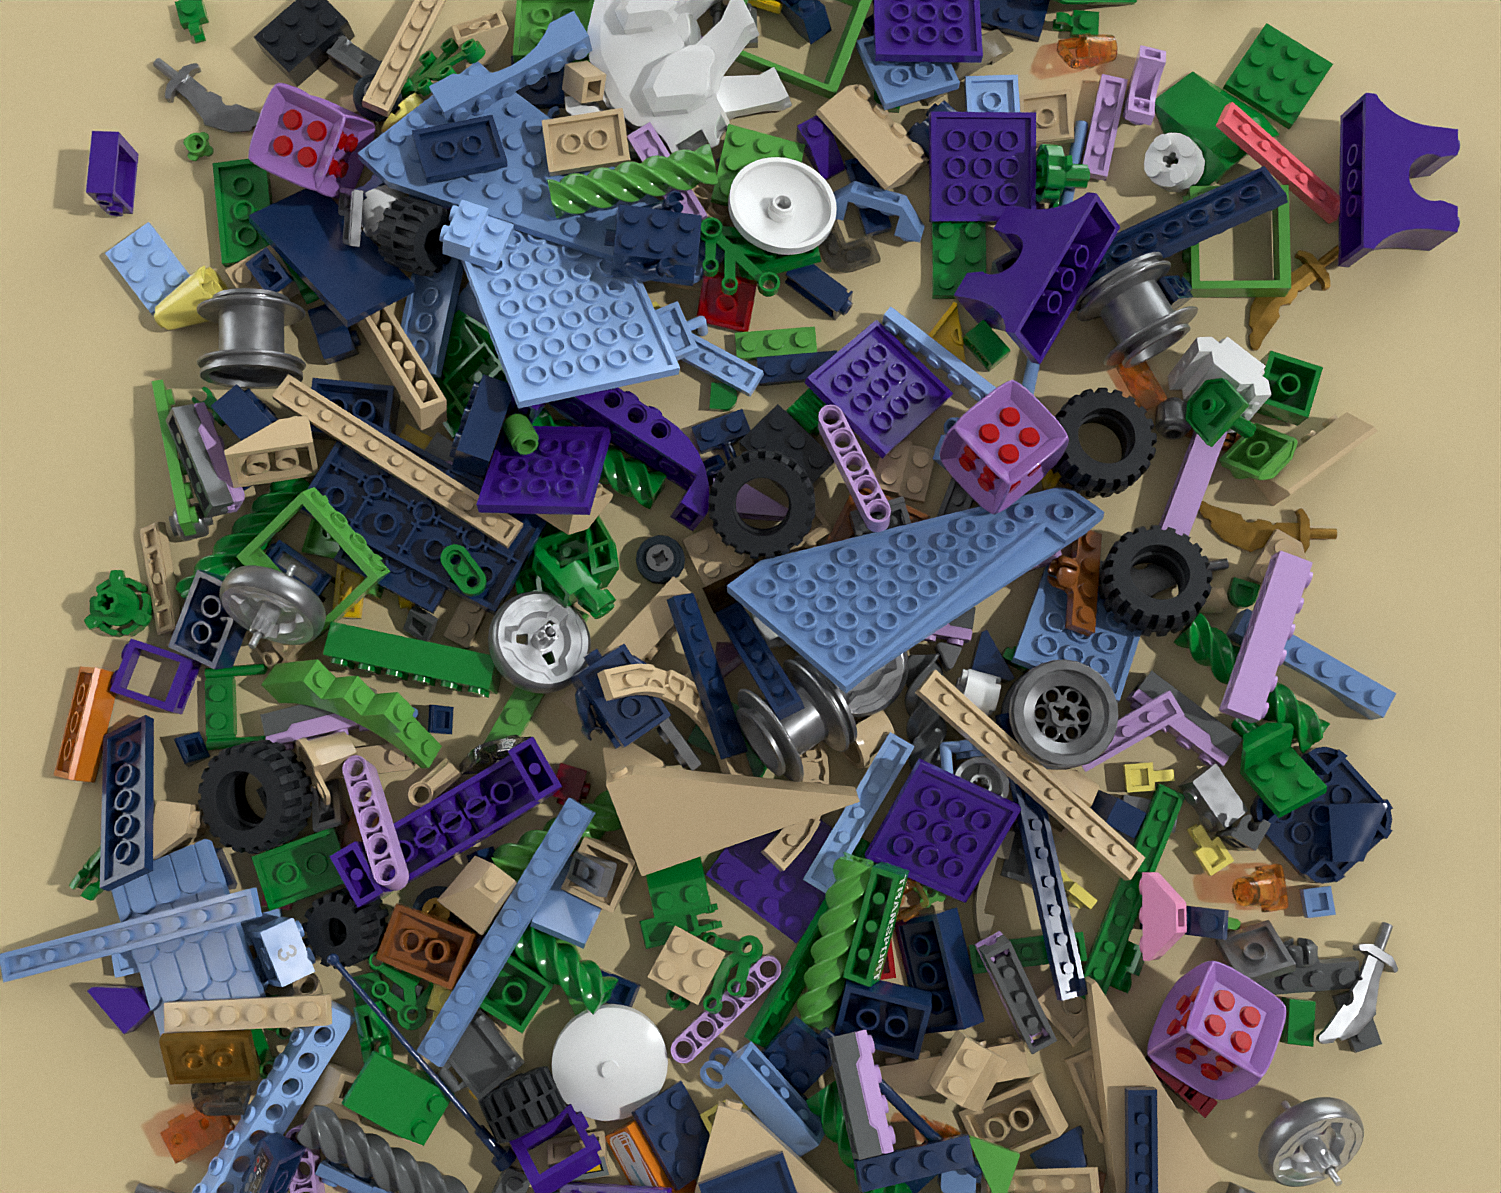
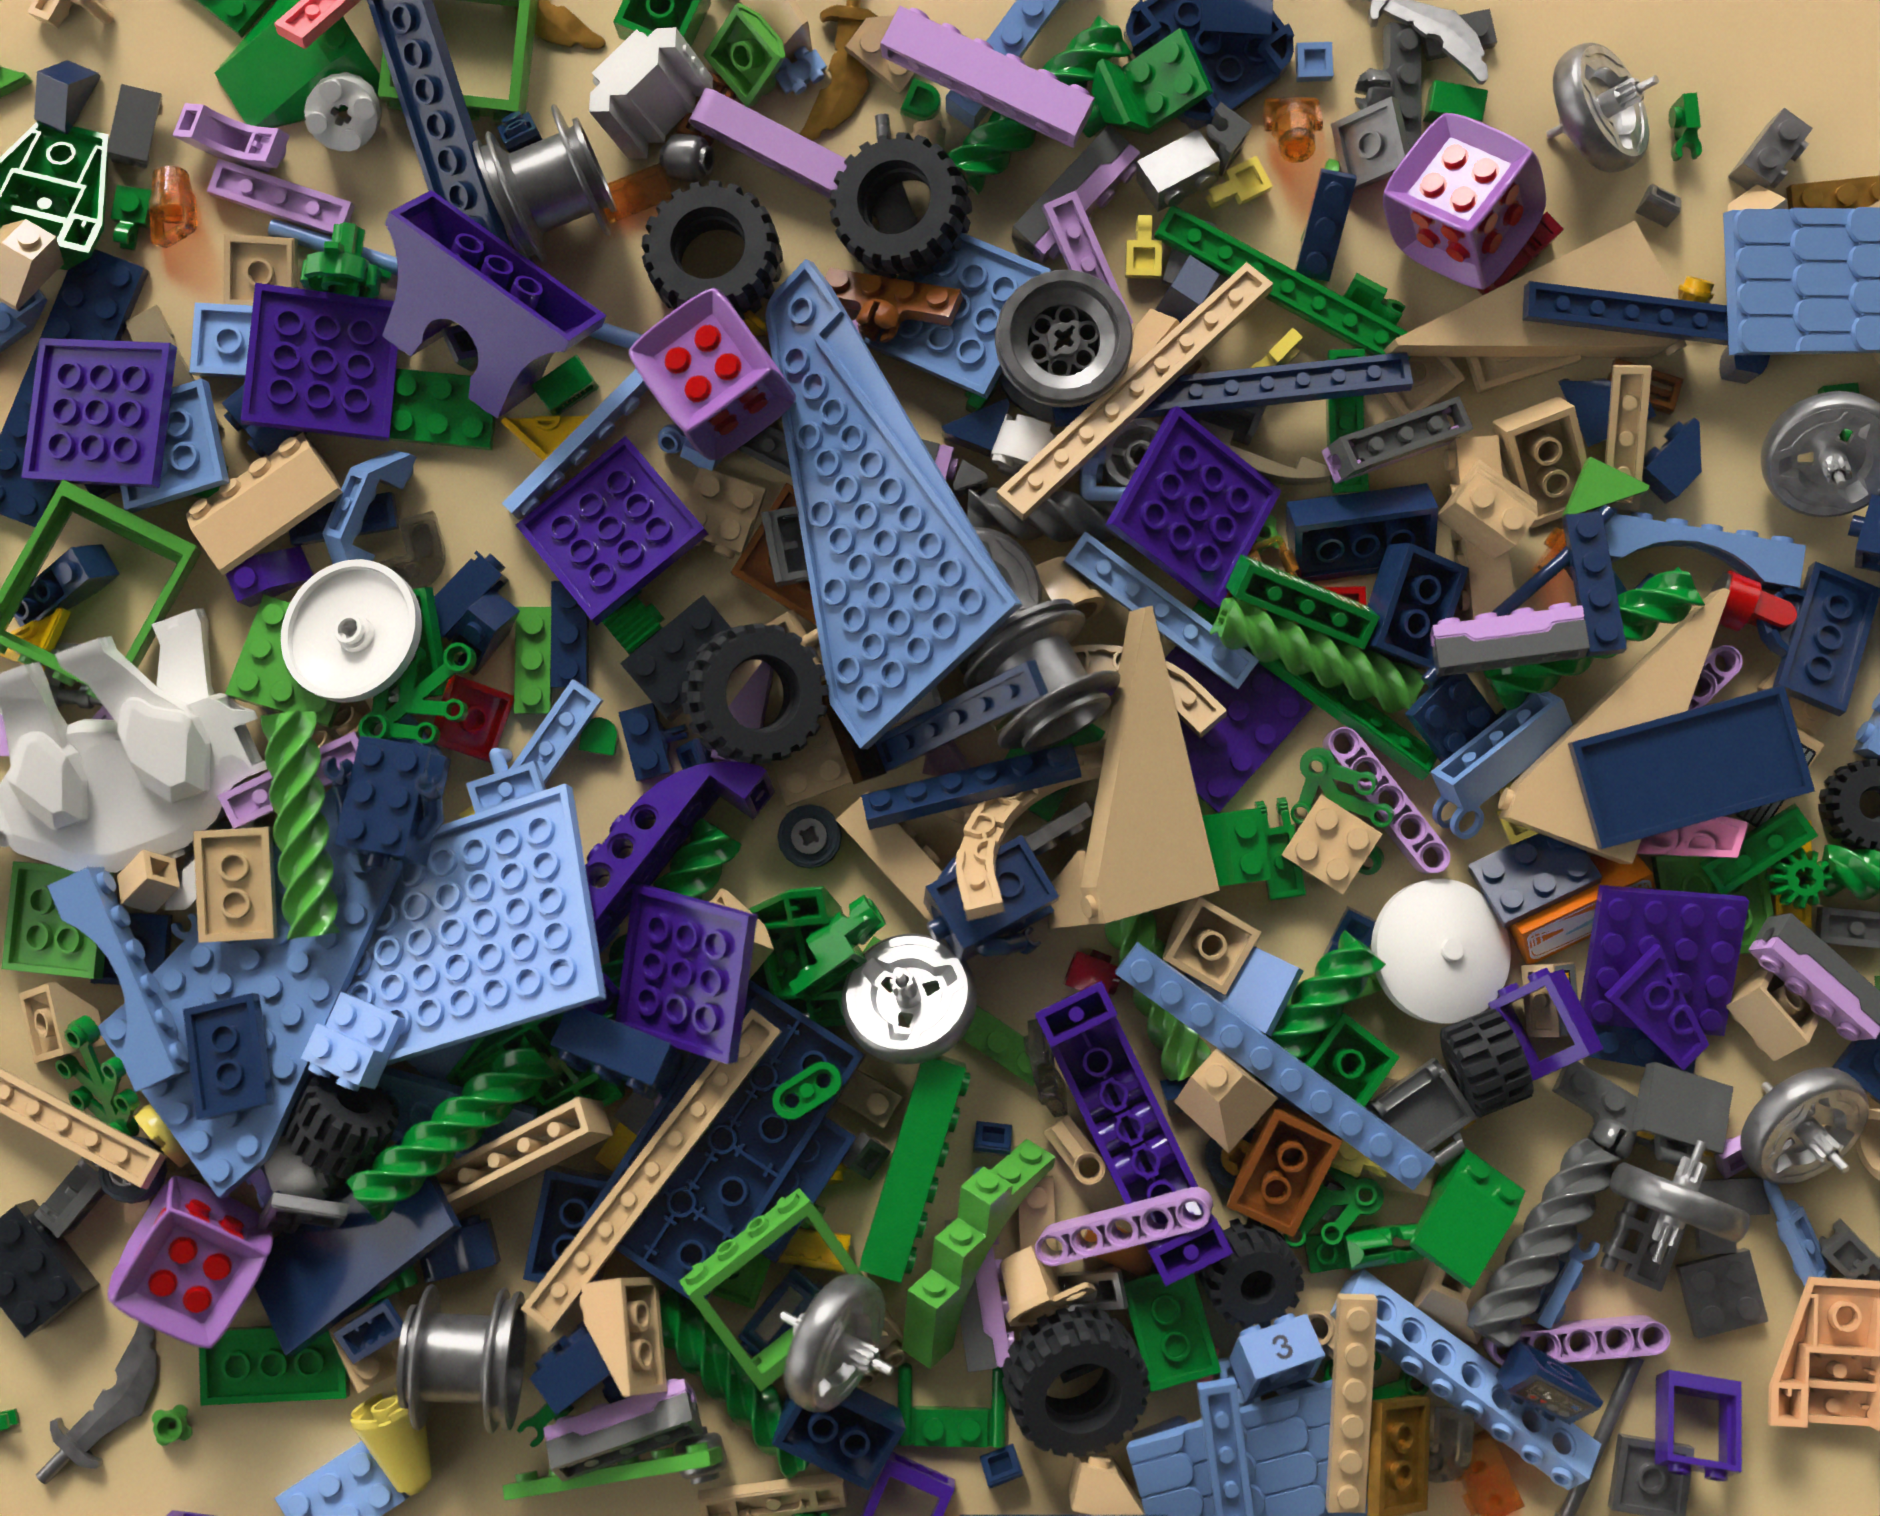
camera: 85 degrees left, 5 degrees up
(419, 315) = (453, 1128): none -> green piece
(503, 1156) = (1545, 1094): dark blue piece -> none
(520, 434) = (633, 1001): bright green brick -> none
(592, 873) = (1212, 951): flat silver slope -> none
(795, 304) = (485, 627): none -> dark blue slope
(854, 456) = (701, 571): lavender beam -> none
(1144, 17) = (133, 126): none -> dark grey hinge
(1161, 914) = (1320, 251): bright pink slope -> none
(1216, 410) = (687, 99): green piece -> none
(1255, 502) = (798, 74): none -> light blue piece

